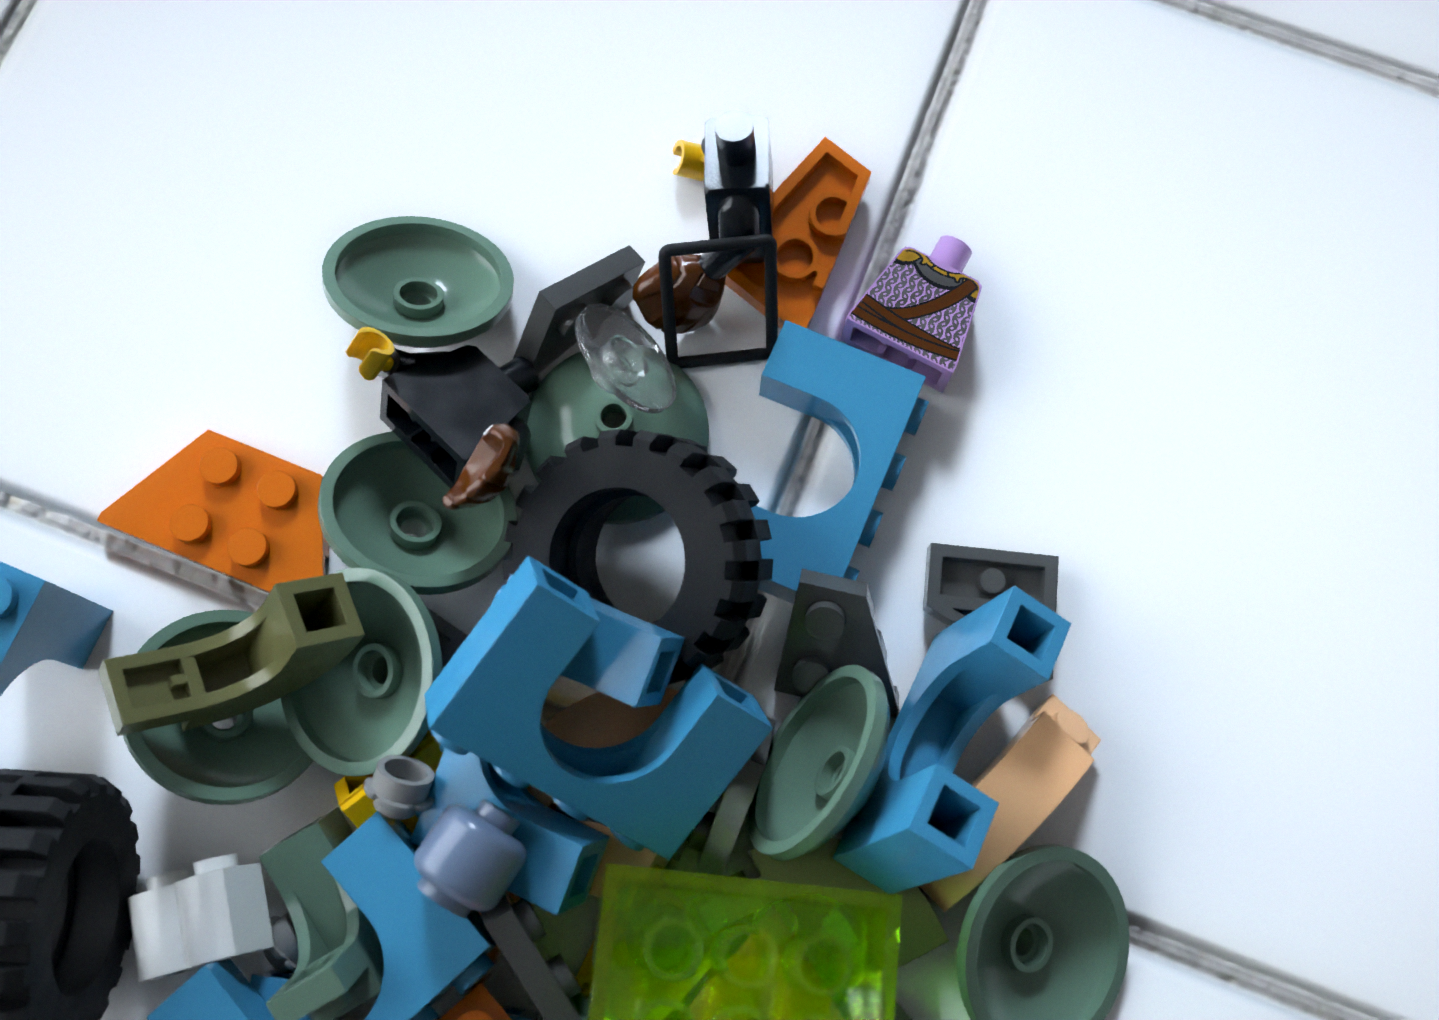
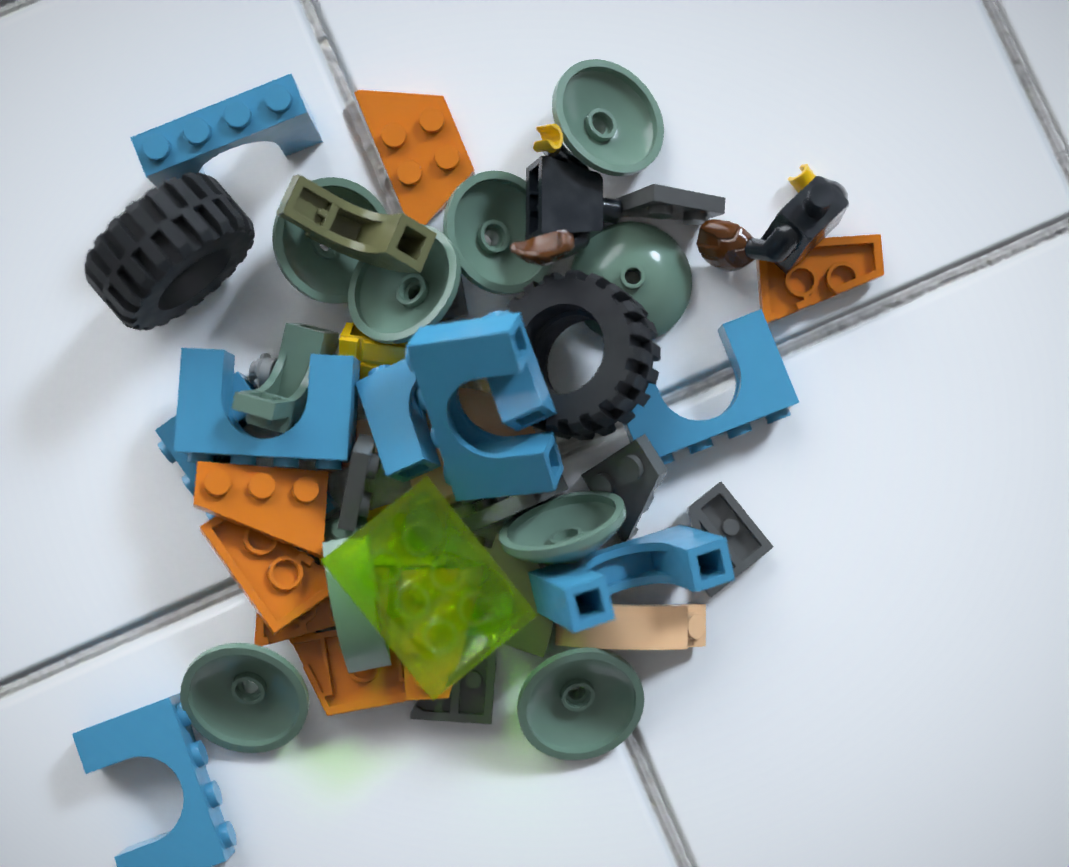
camera: 50 degrees right, 10 degrees up
(199, 917) = (237, 325): white brick -> none
(400, 786) = (373, 355): light grey plate -> none
(470, 858) = (373, 416): sand blue head -> none
(625, 359) = (665, 254): clear dish -> none
(668, 307) = (764, 247): black piece -> none
(918, 311) = (833, 366): torso -> none

